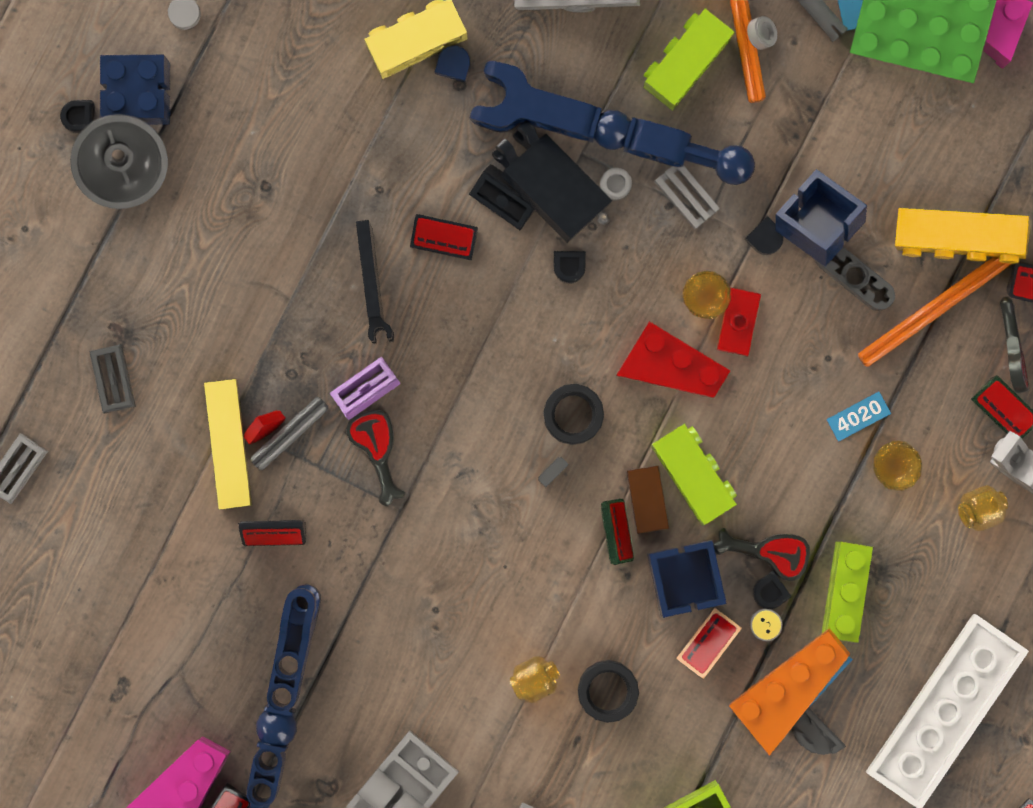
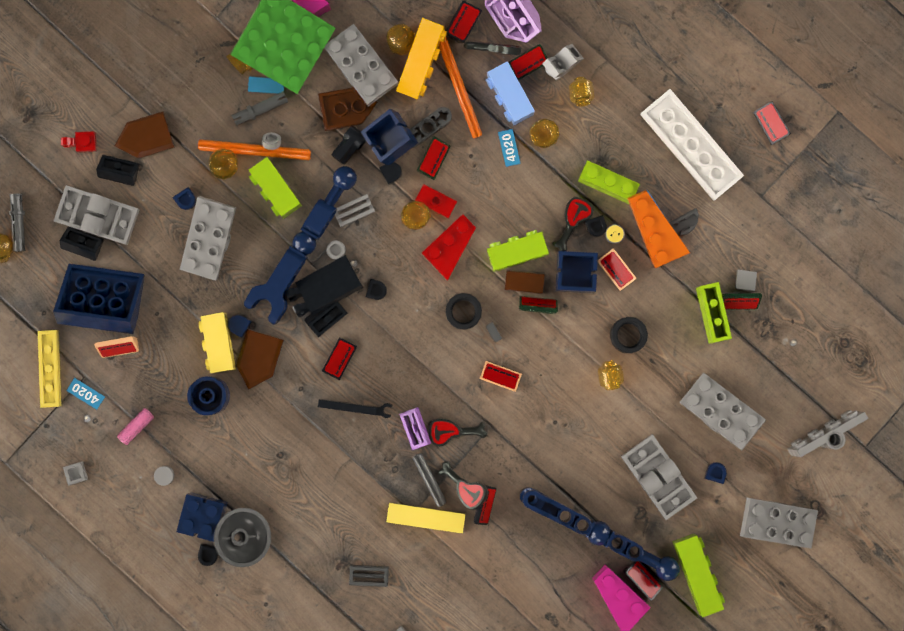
camera: 75 degrees left, 0 degrees up
(263, 426) = (421, 494): red tile -> none
(283, 504) = (470, 494): none -> pearl dark grey piece
(311, 41) = (205, 406): none -> dark blue brick
(410, 108) = (258, 357): none -> reddish brown tile
(485, 502) = (500, 376): none -> red slope
(795, 160) = (352, 141): none -> black piece
(807, 299) = (433, 158): none -> red slope
(848, 135) = (343, 108): none -> reddish brown tile
(925, 140) = (361, 65): none -> light grey plate
(946, 392) = (509, 93): none -> light blue brick
(985, 192) = (400, 39): none -> clear yellow hair

